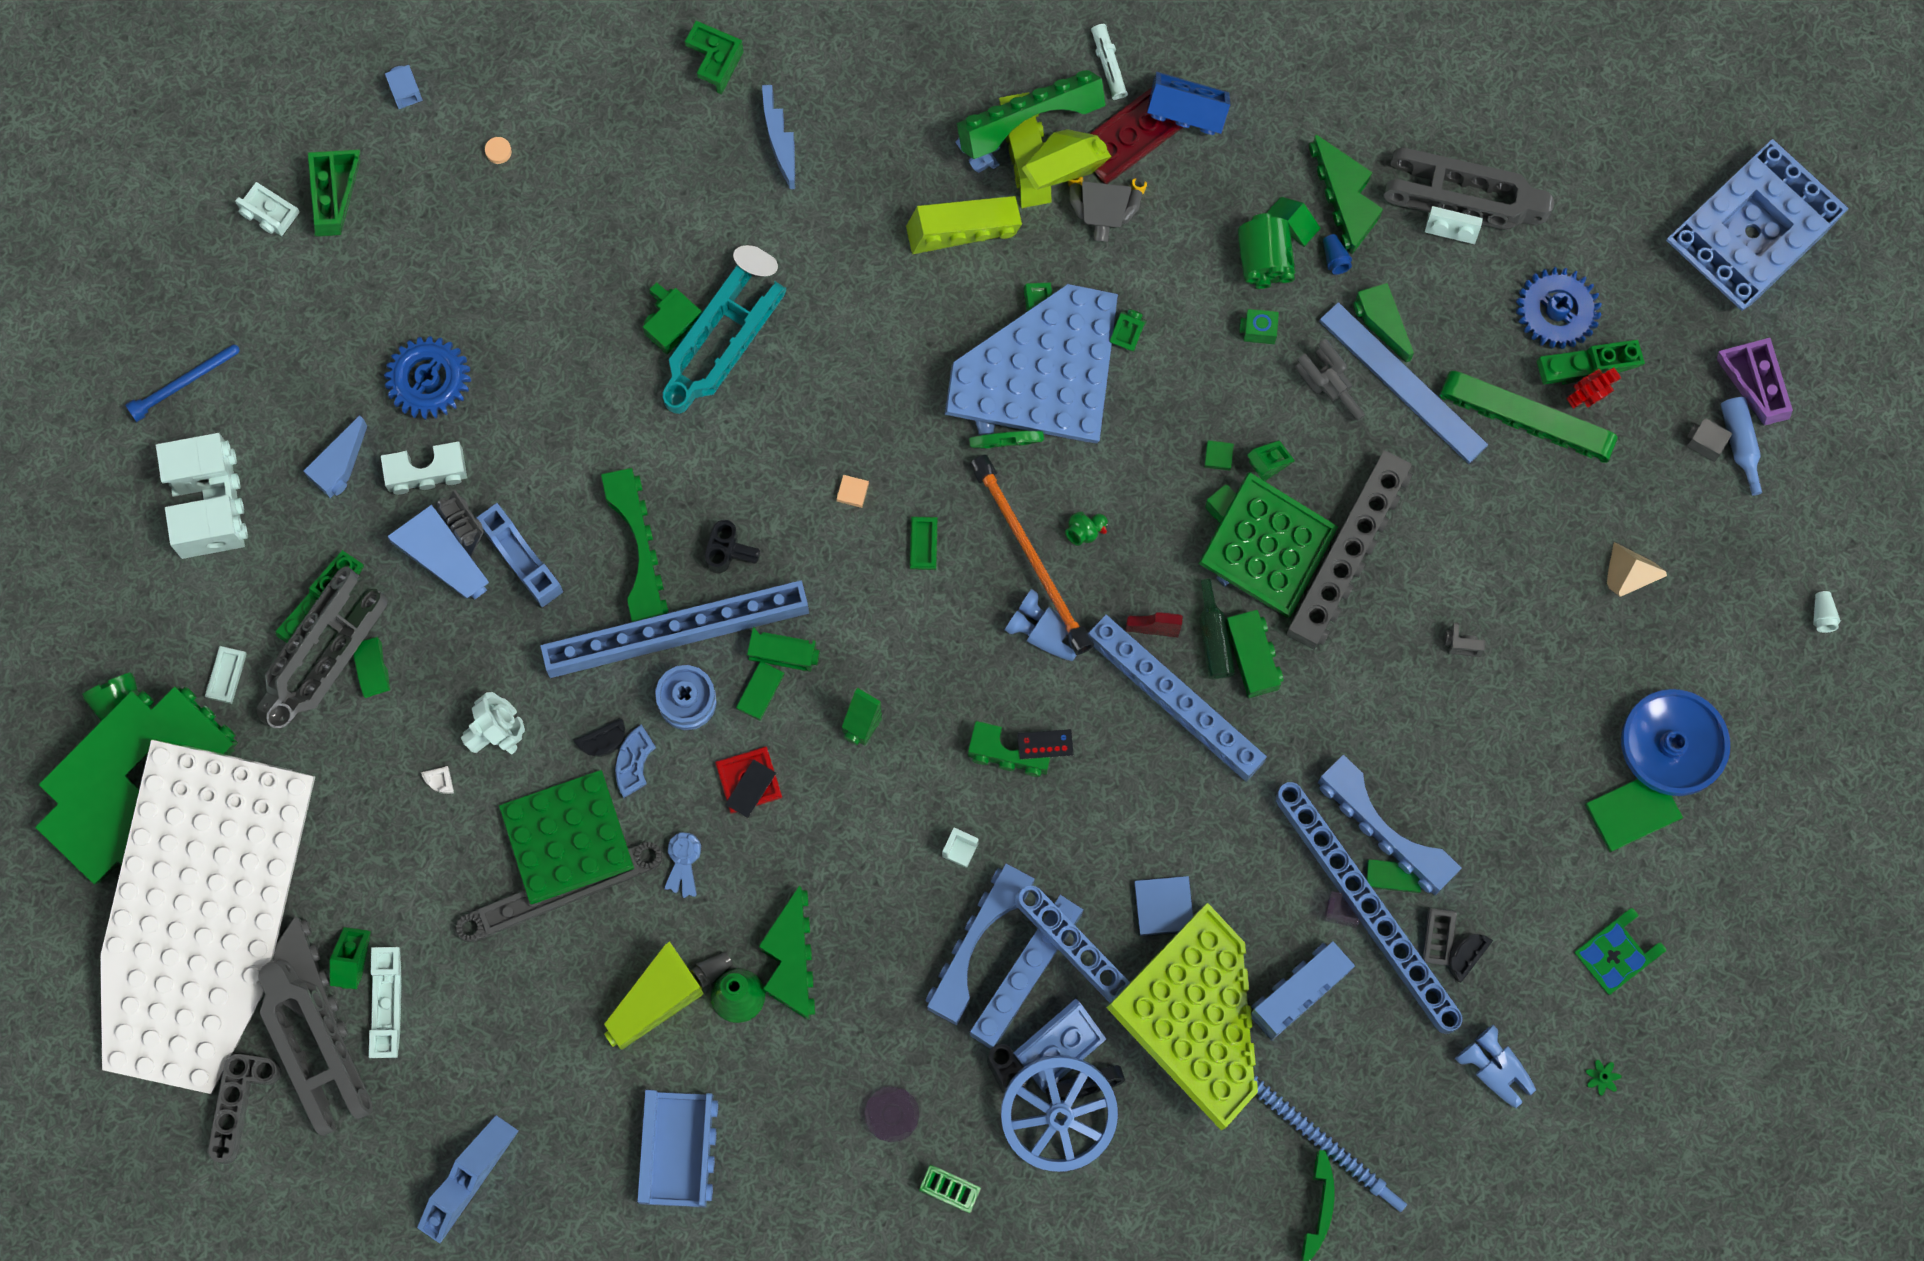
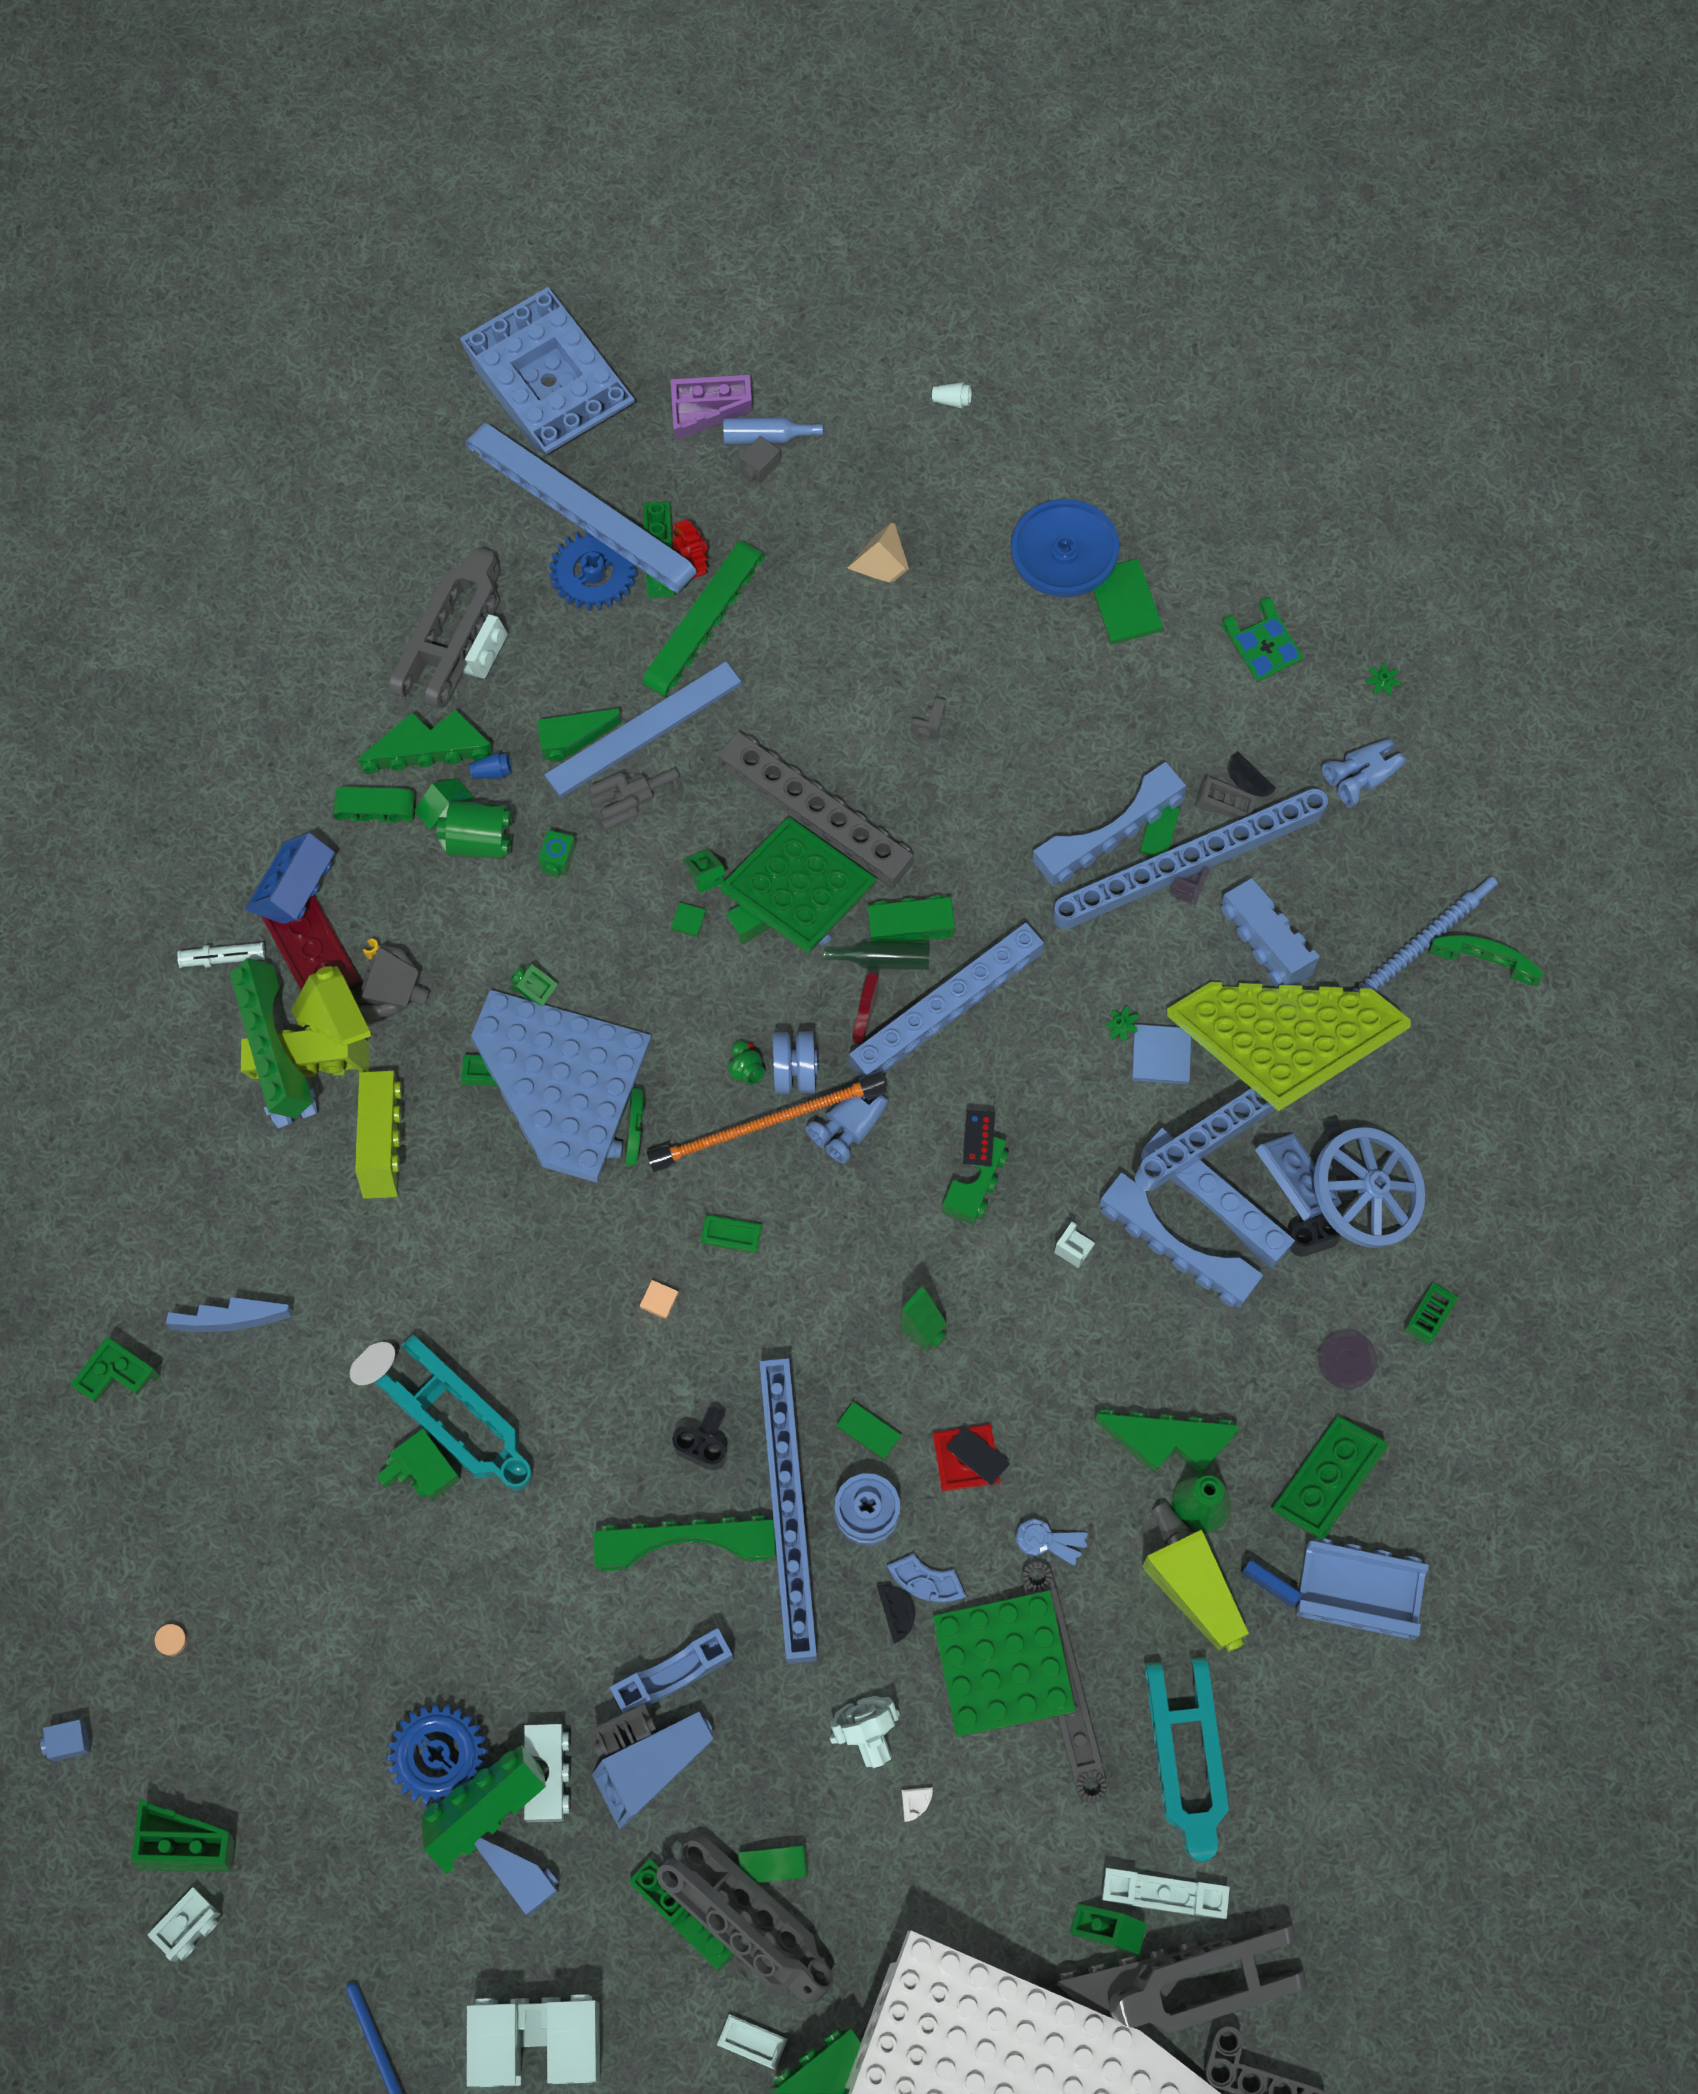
camera: 80 degrees left, 5 degrees down
(383, 415) = (480, 1806): none -> green wedge
(441, 1025) = (1198, 1828): none -> teal piece
(465, 1178) = (1372, 1823): medium blue slope -> none
(670, 1065) = (1271, 1583): none -> blue tile
(776, 1108) = (1330, 1477): none -> green tile
(783, 651) = (829, 1398): green window -> none
(1089, 567) = (794, 1062): none -> medium blue wheel
(1187, 865) = (1122, 1024): none -> green plant
(1278, 159) = (379, 804): none -> green beam
(1615, 282) = (581, 508): none -> medium blue beam

